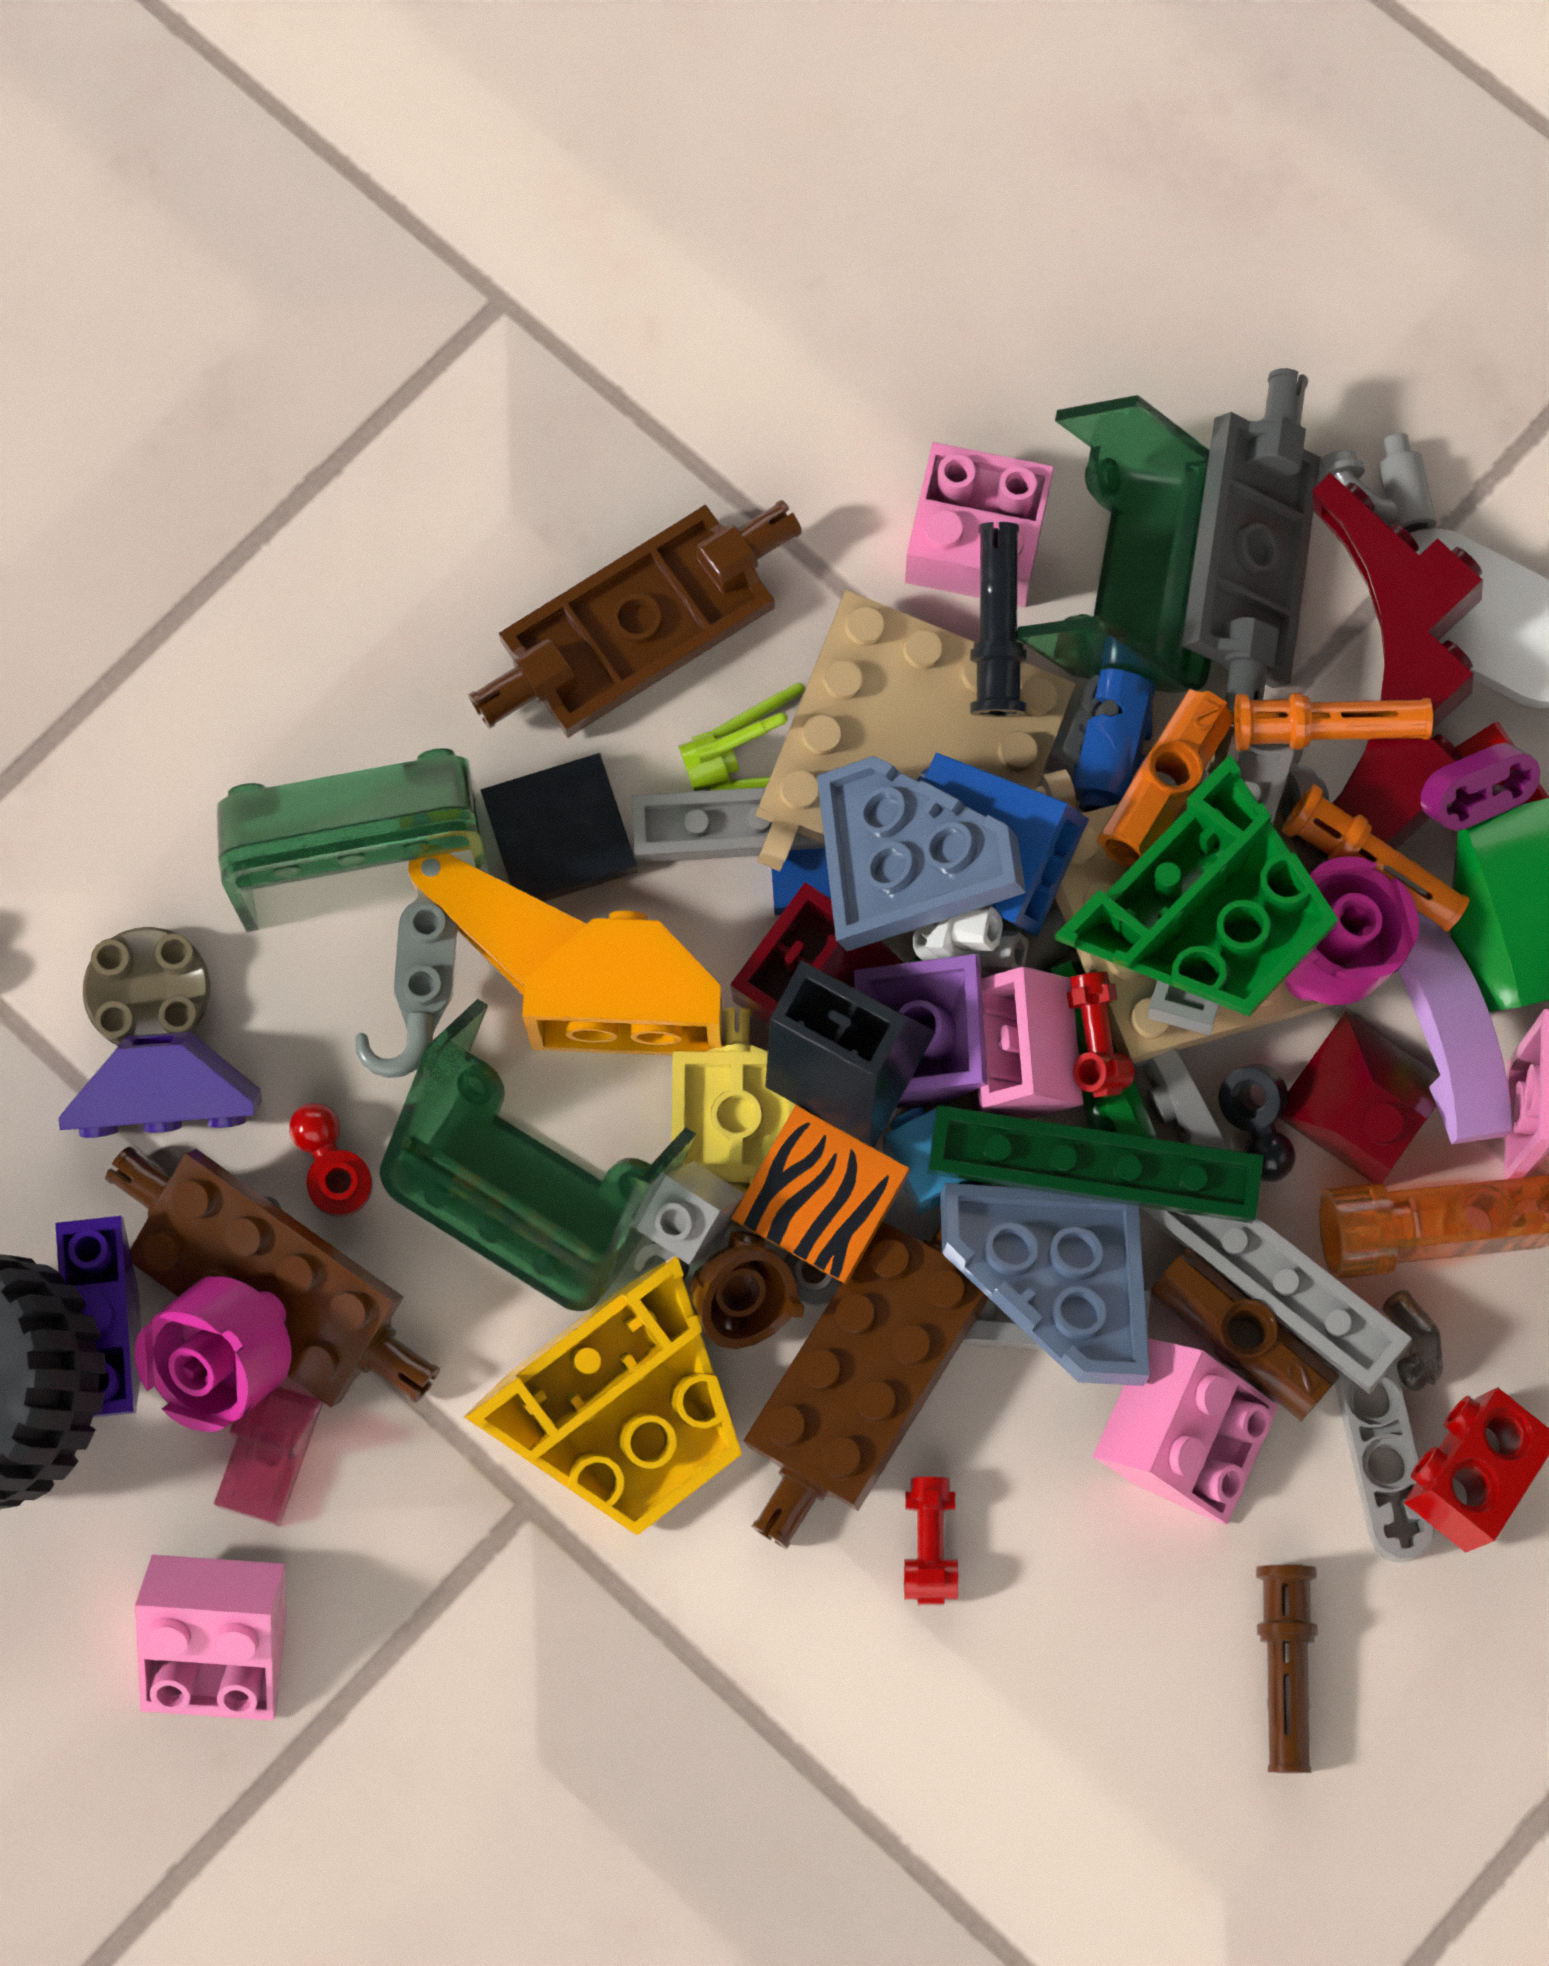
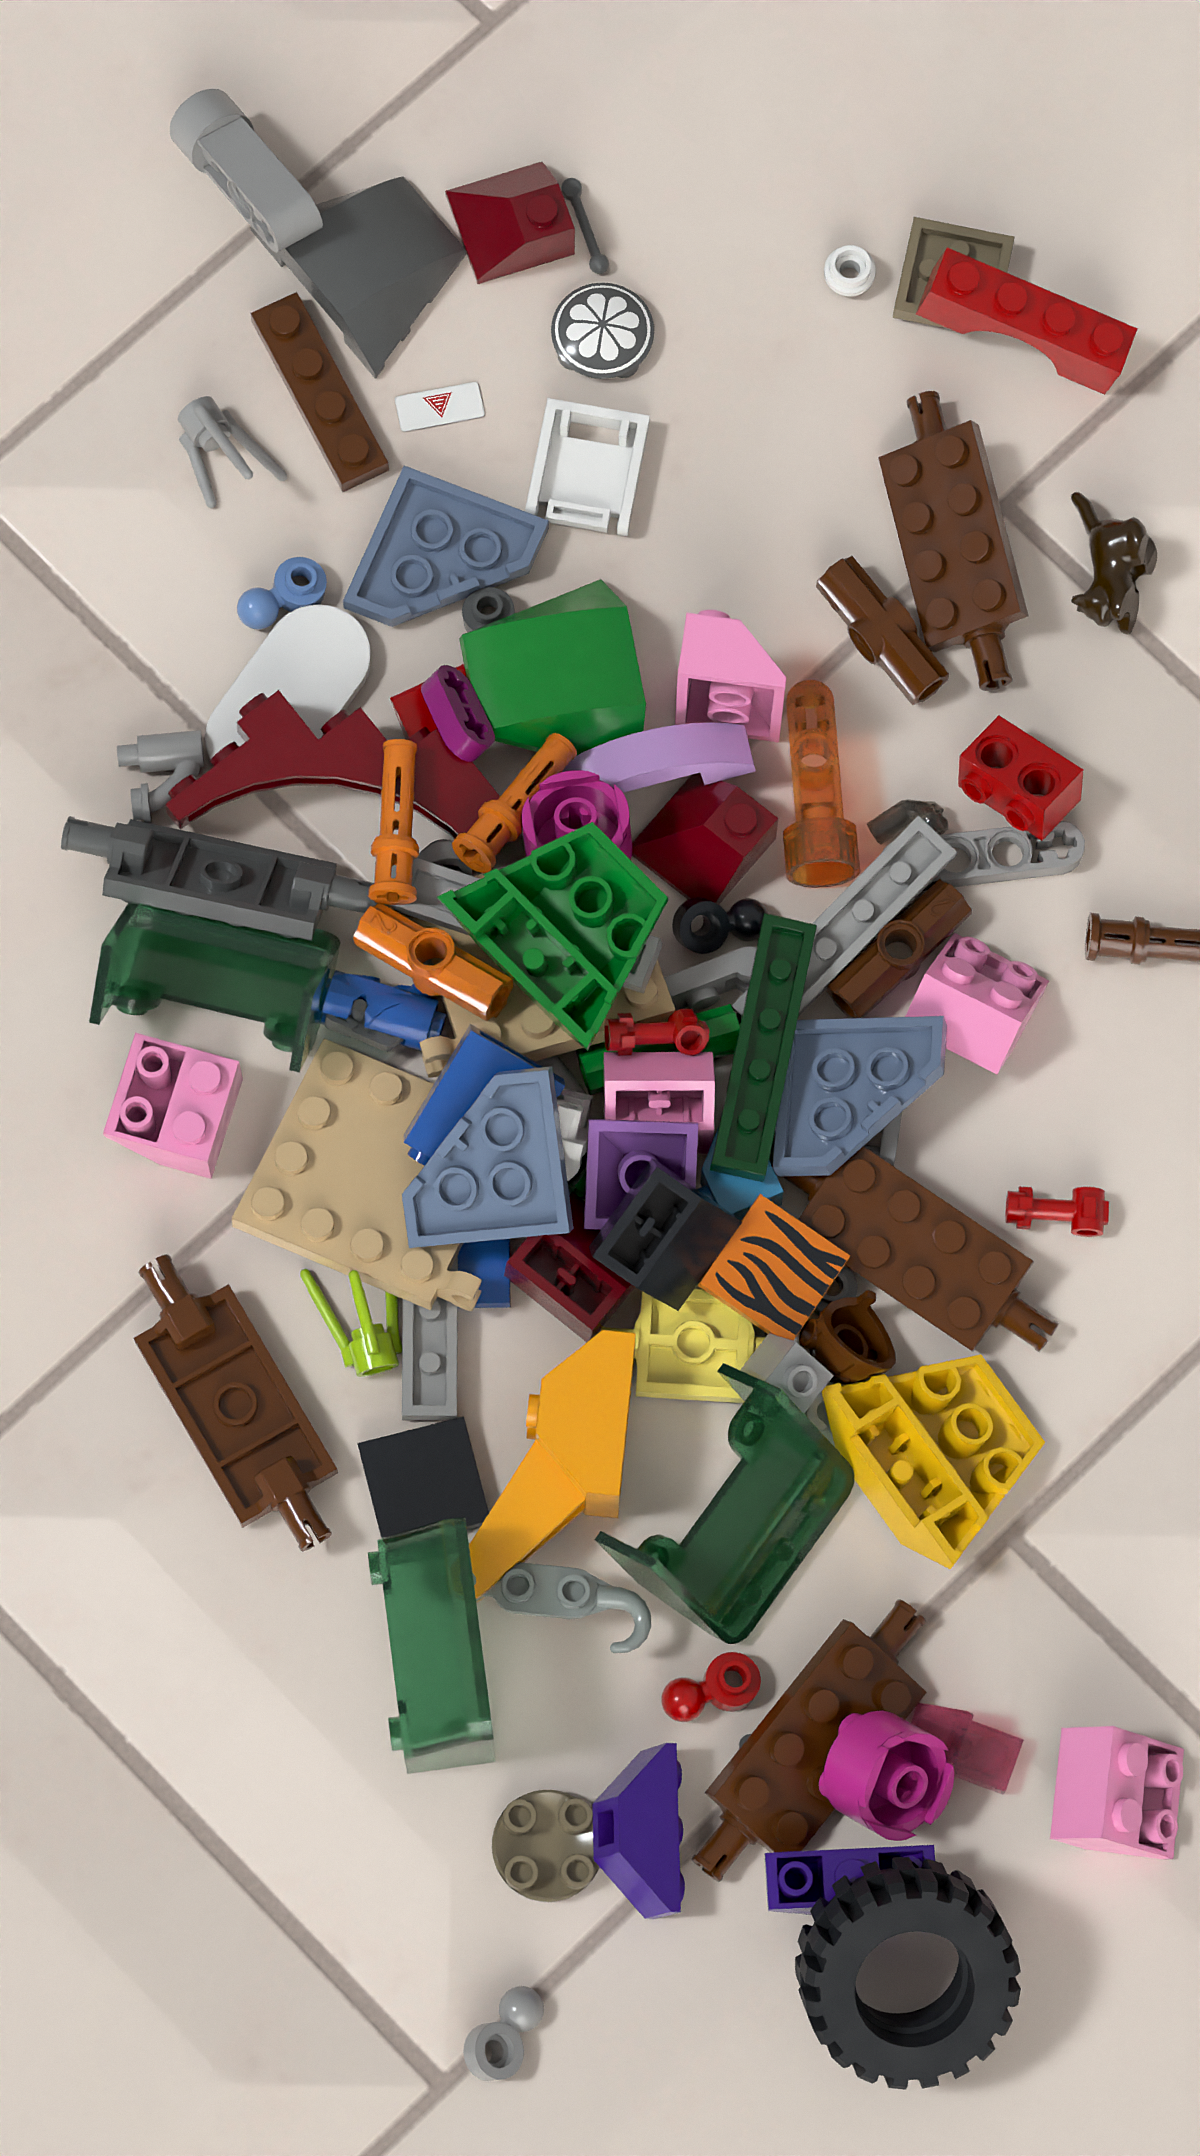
camera: 90 degrees left, 0 degrees up
(998, 652) = (305, 1089): black pin -> none

